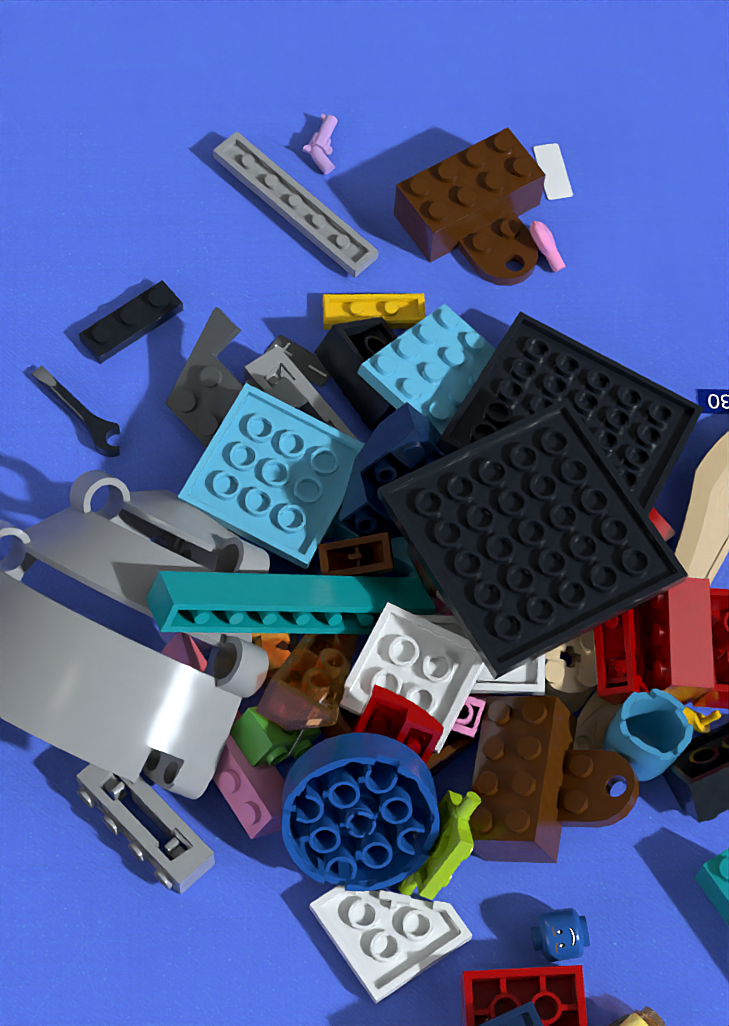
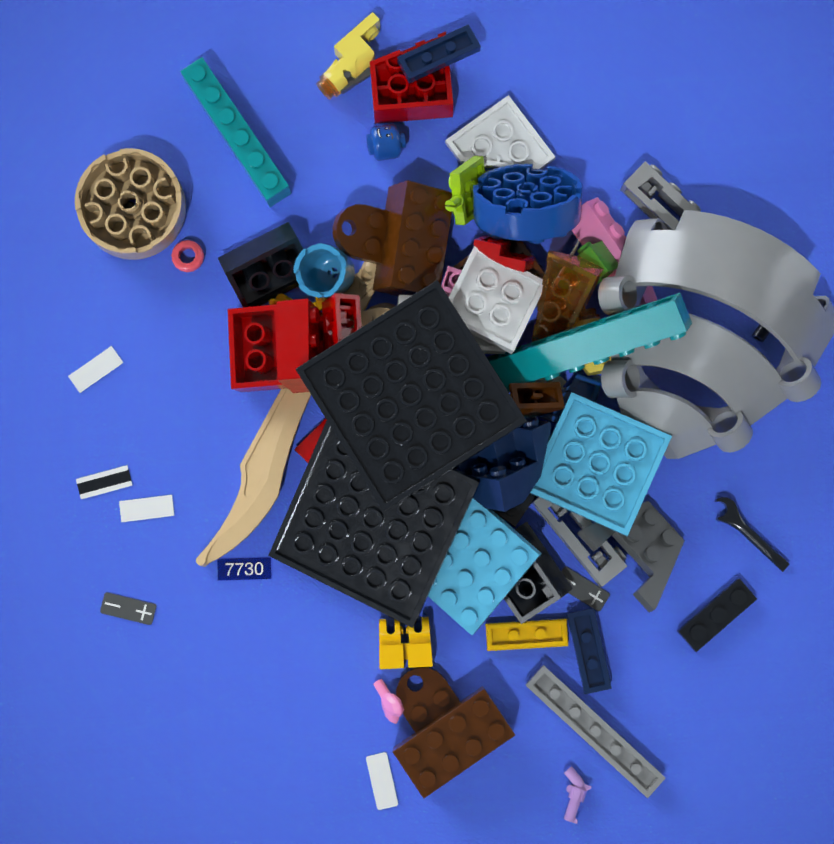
camera: 175 degrees left, 20 degrees up
(297, 287) = (589, 651): none -> dark blue plate
(540, 294) = (393, 652): none -> yellow legs

